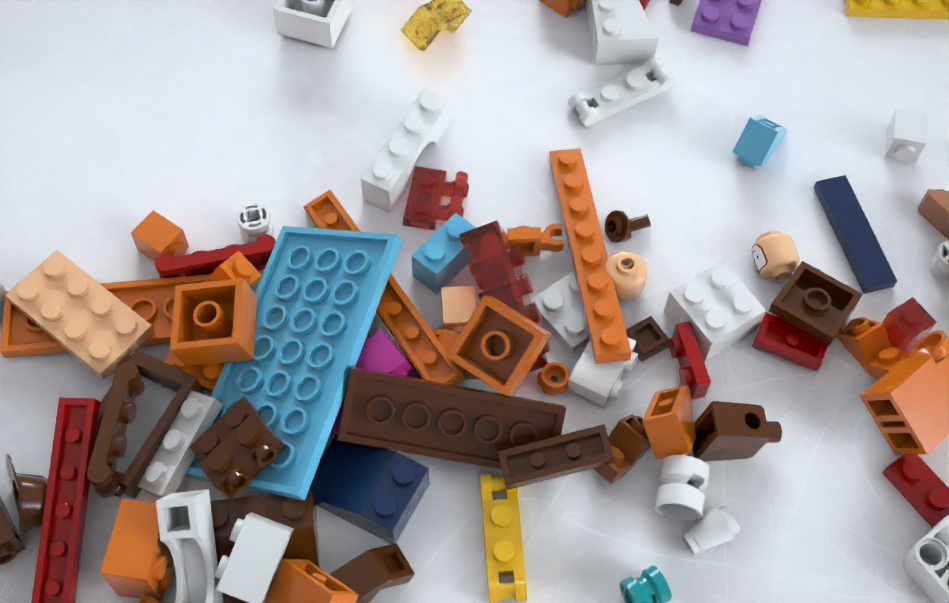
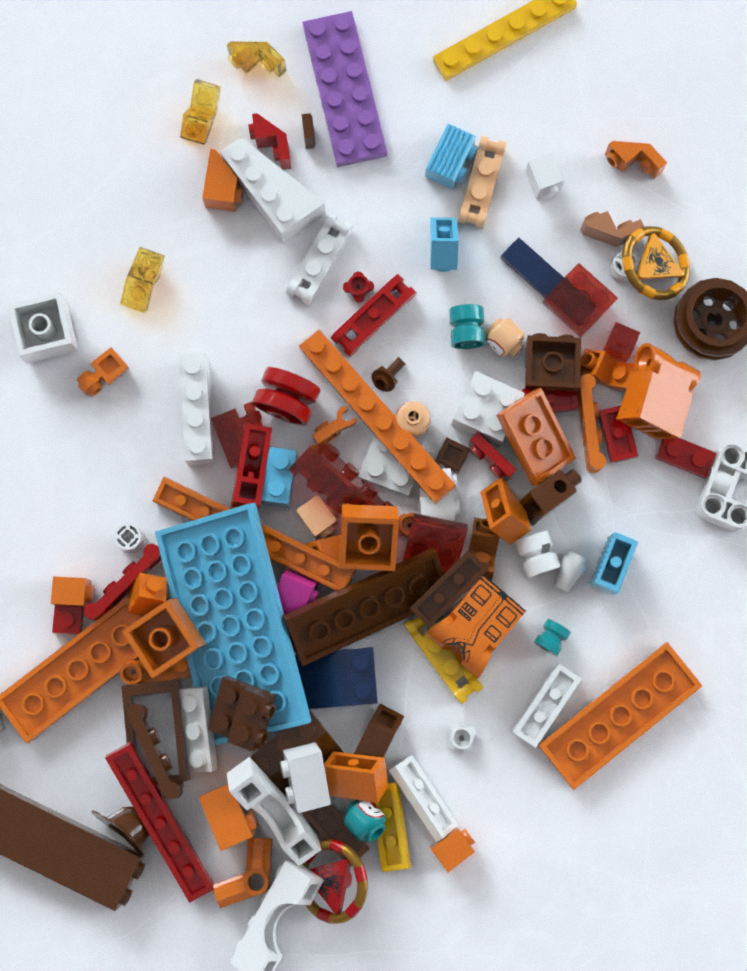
camera: 30 degrees left, 20 degrees up
(80, 314) = (60, 683): light nougat plate -> none
(135, 265) = (68, 619): none -> red plate
(153, 340) = (126, 675): none -> orange plate
(349, 73) = (108, 367): none -> orange plate
(425, 220) = (251, 466): none -> red slope
(505, 179) = (286, 396): none -> red wheel
(563, 516) = (477, 625): none -> orange piece
(584, 400) = (440, 534): none -> clear red plate
(645, 164) = (373, 315): none -> red plate
(647, 127) = (358, 279): none -> red plate
(739, 222) = (467, 330): none -> teal wheel
(754, 359) = (536, 436): none -> orange tile
(769, 548) = (613, 563): none -> medium azure brick
(814, 72) = (450, 156): none -> medium azure brick
(819, 401) = (590, 434): none -> orange plate
(833, 111) = (482, 182): none -> light nougat plate
(849, 421) = (617, 436): none -> red plate
(881, 263) = (579, 300): none -> clear red plate

